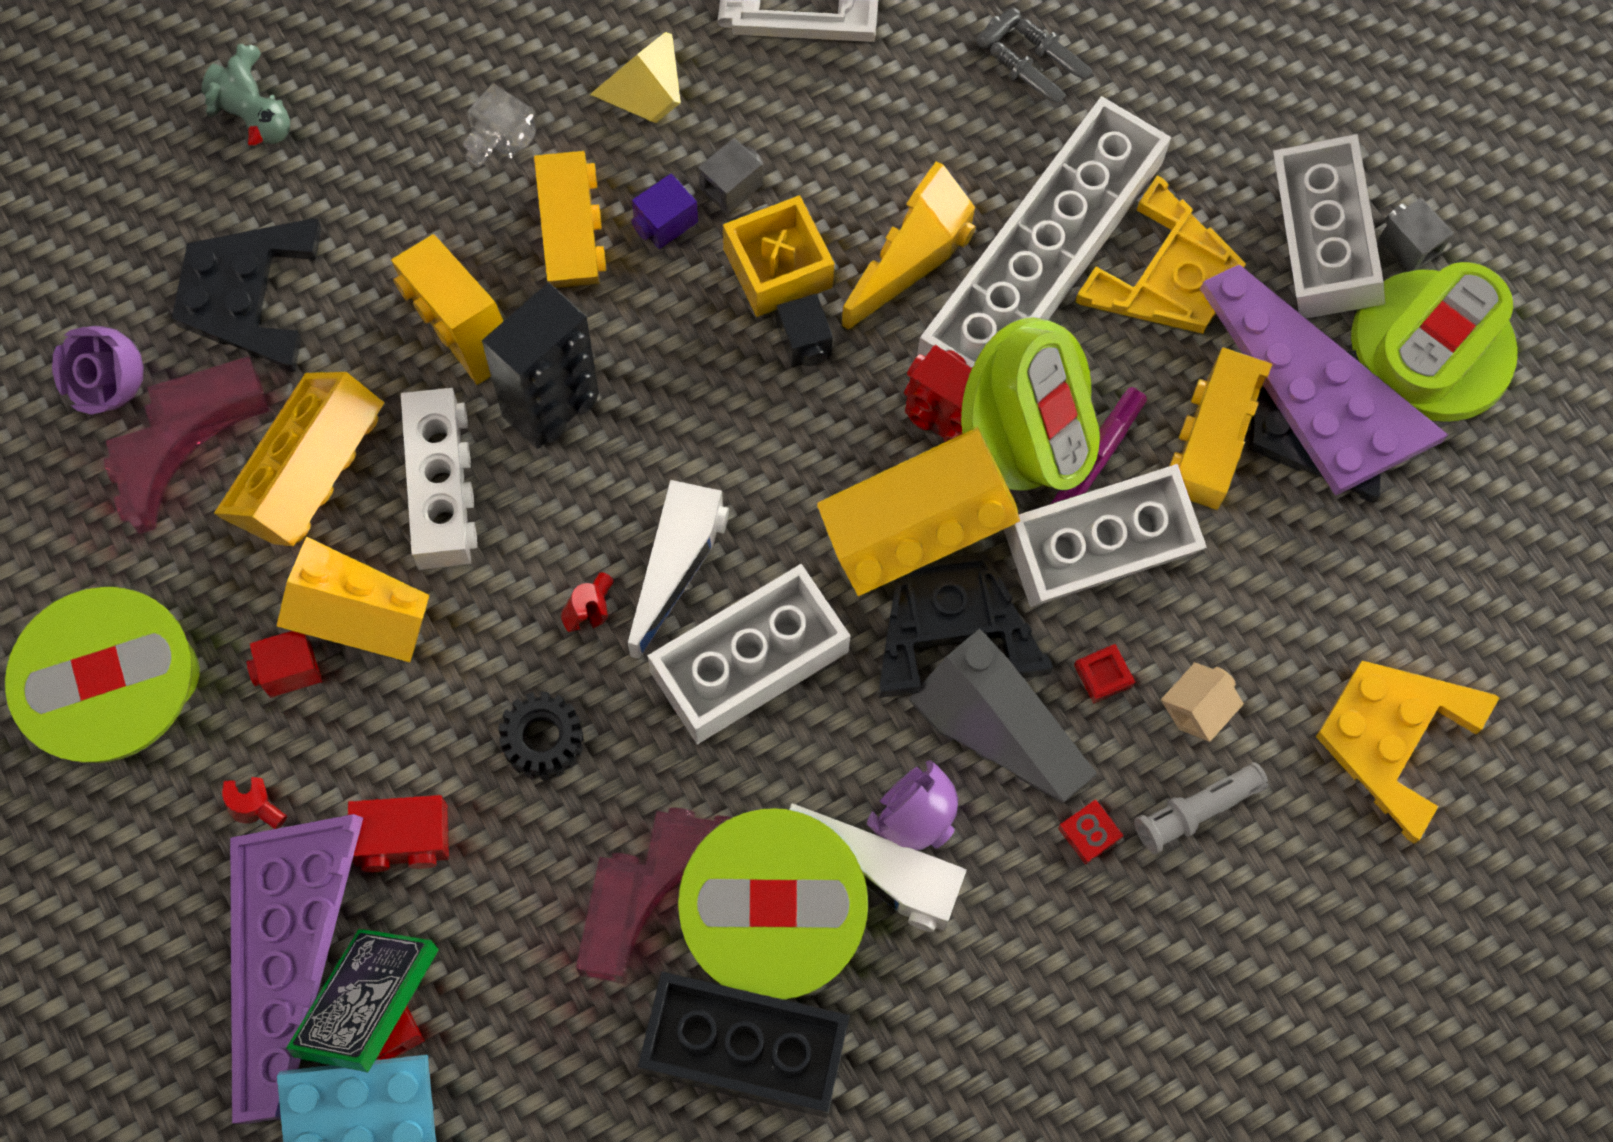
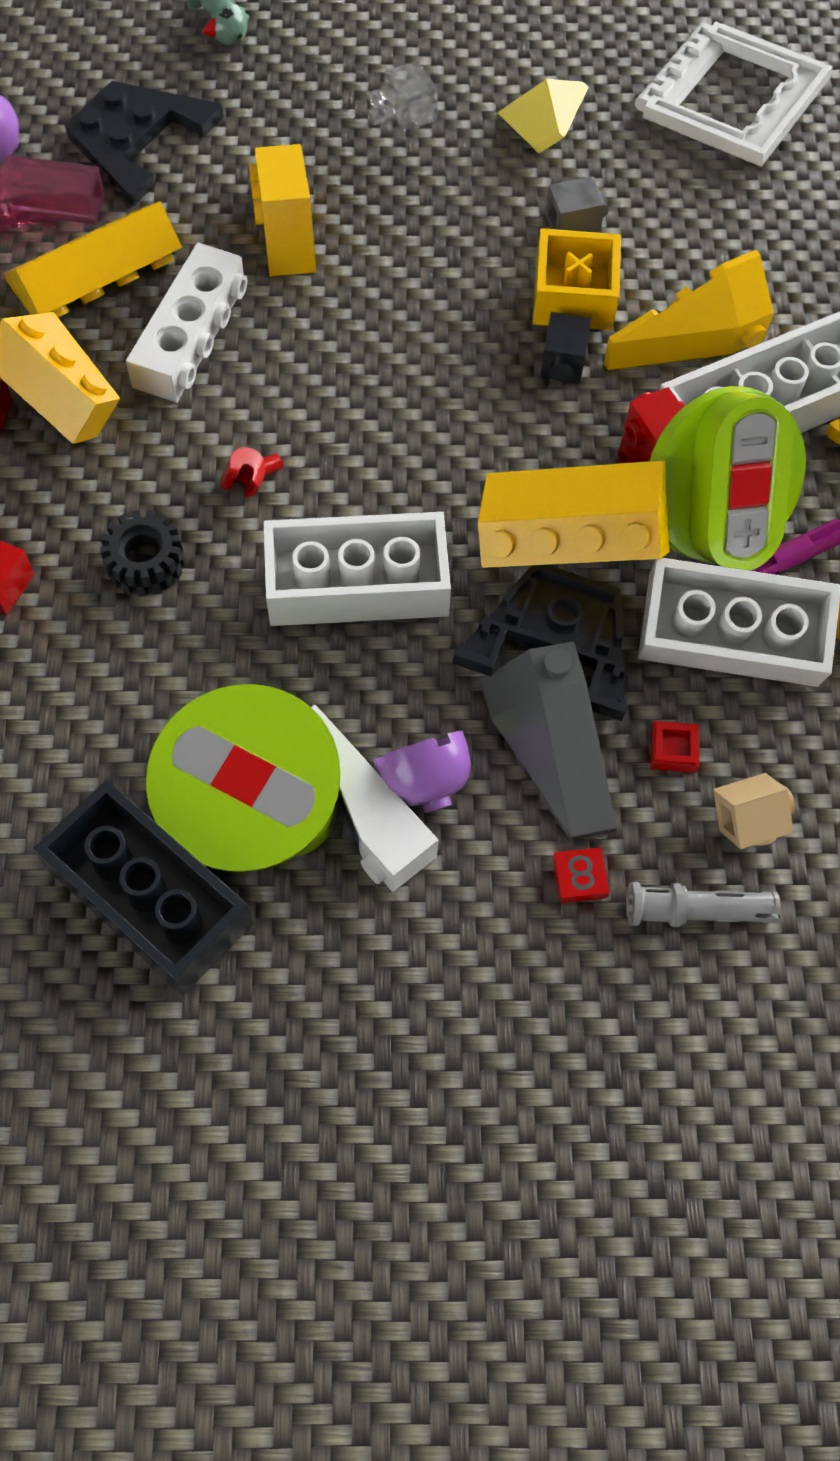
camera: 30 degrees right, 5 degrees down
(542, 366) = (315, 254): black brick -> none
(569, 219) = (417, 178): yellow wedge -> none
(630, 891) = (125, 715): clear pink arch -> none
(664, 211) = (501, 211): dark purple brick -> none
(681, 544) = (350, 464): white slope -> none

